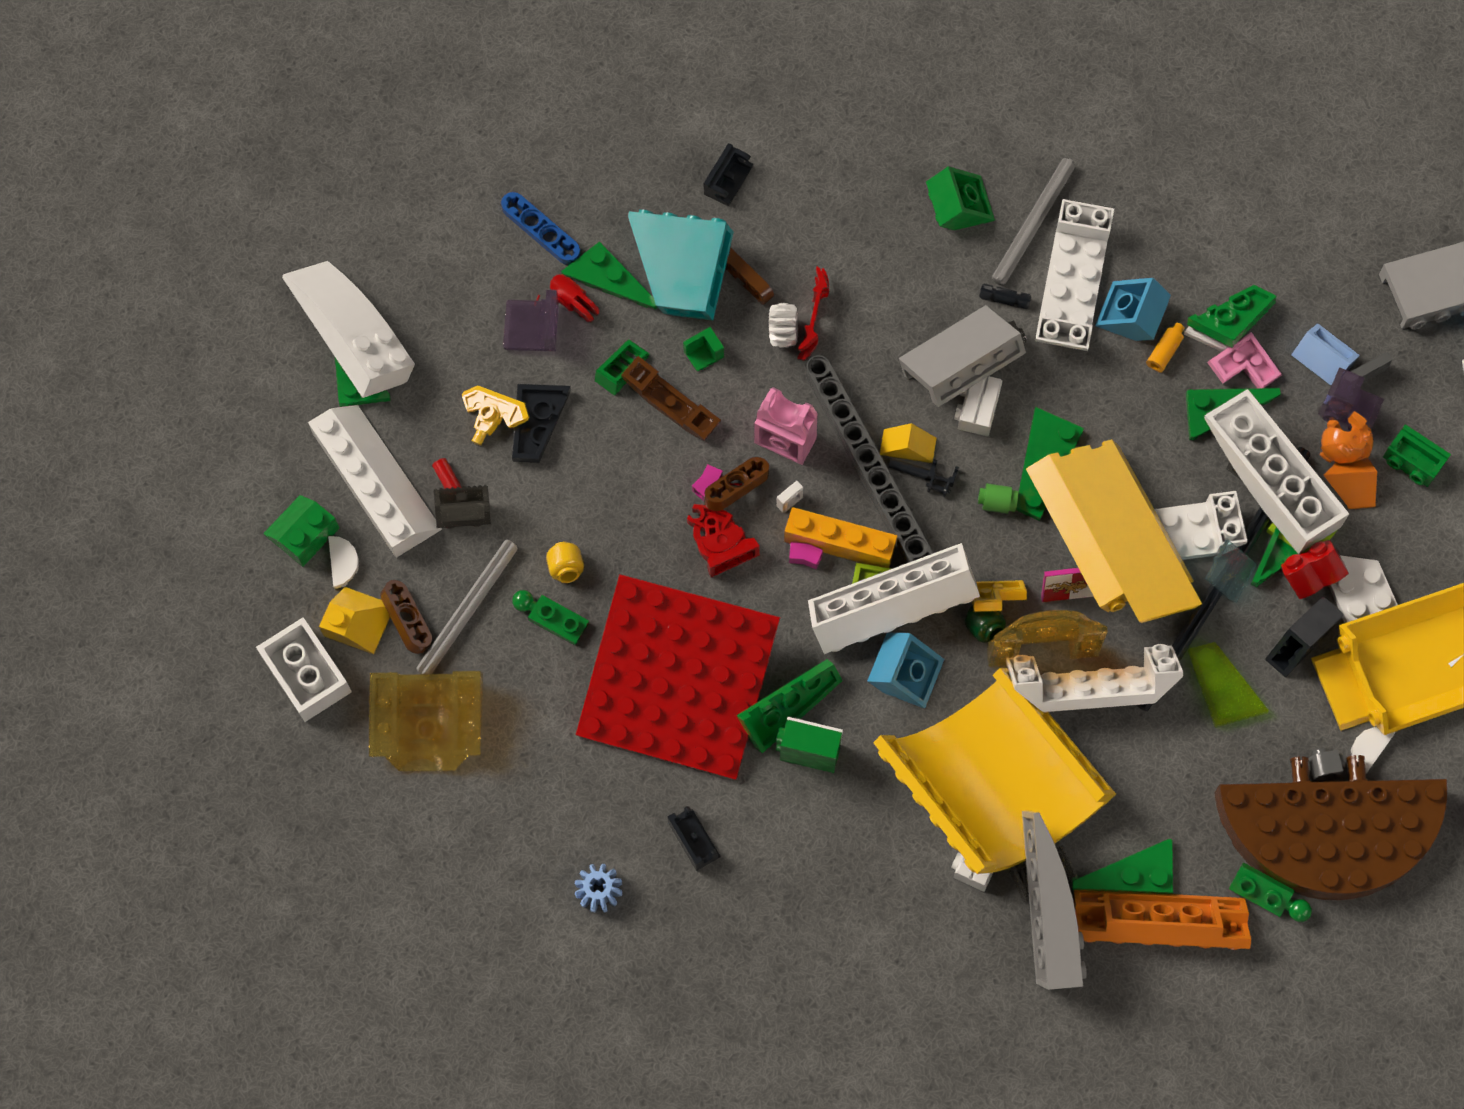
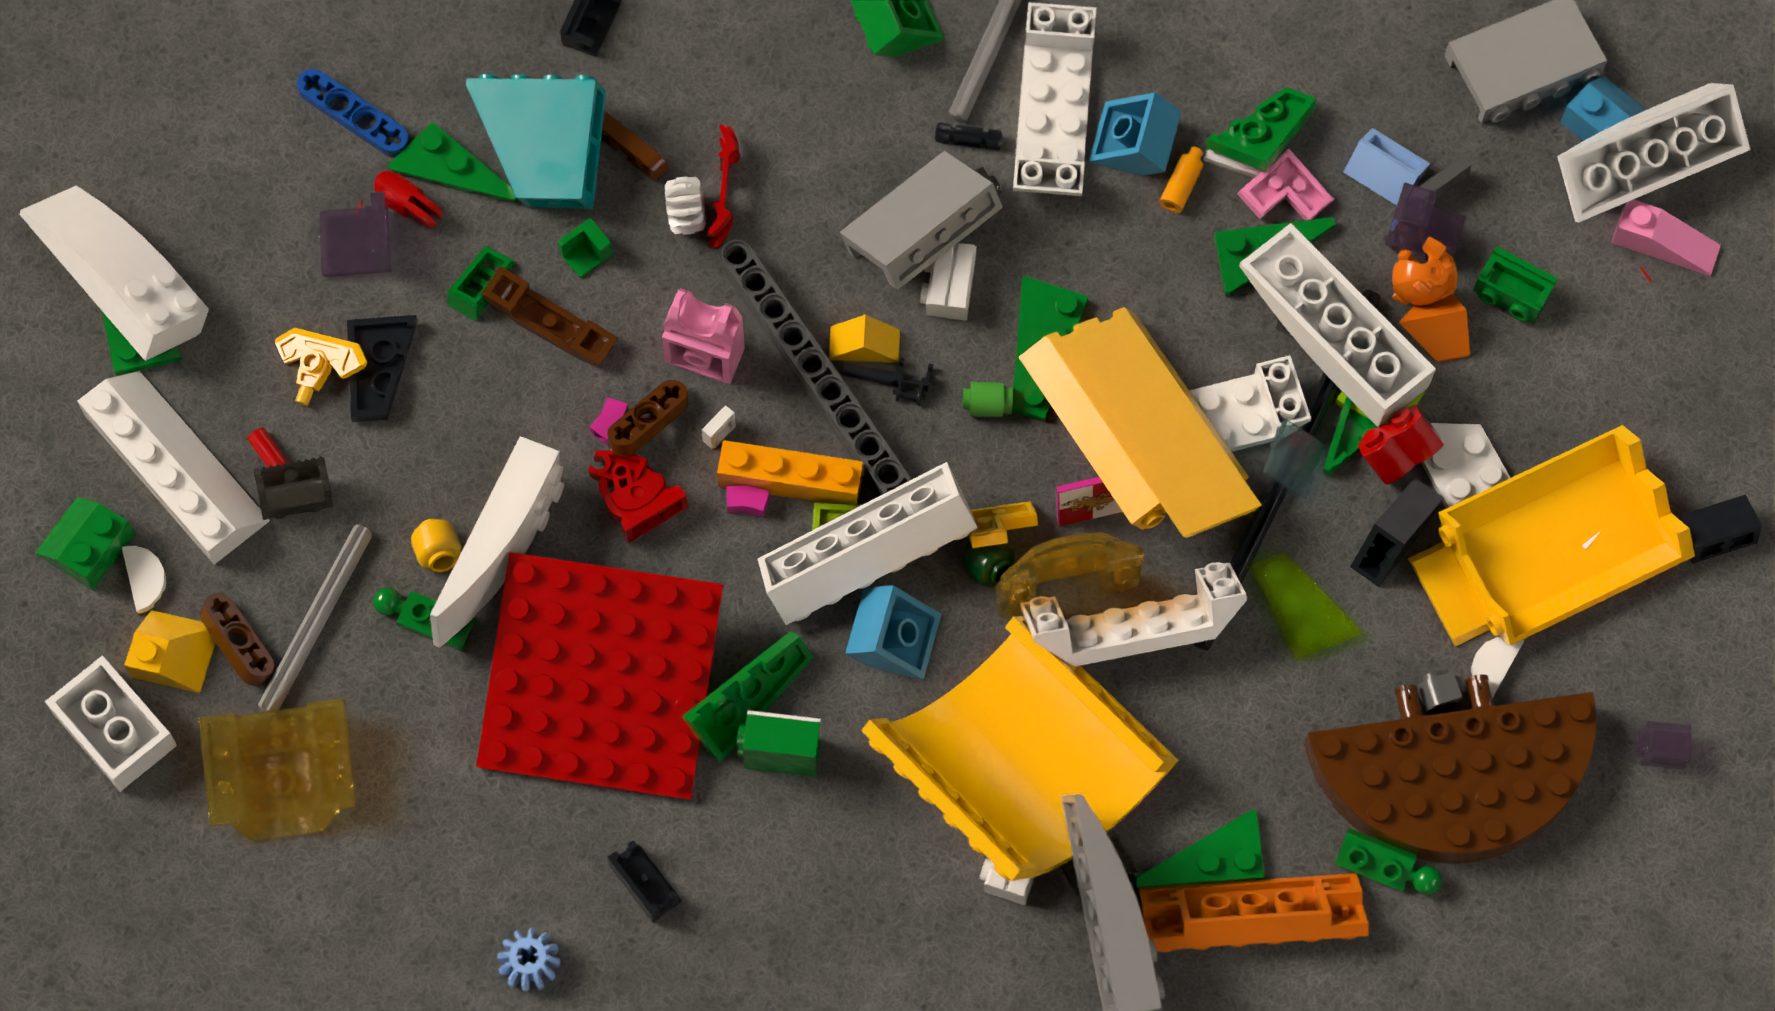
camera: 10 degrees left, 0 degrees up
(619, 553) = (506, 525): none -> white slope

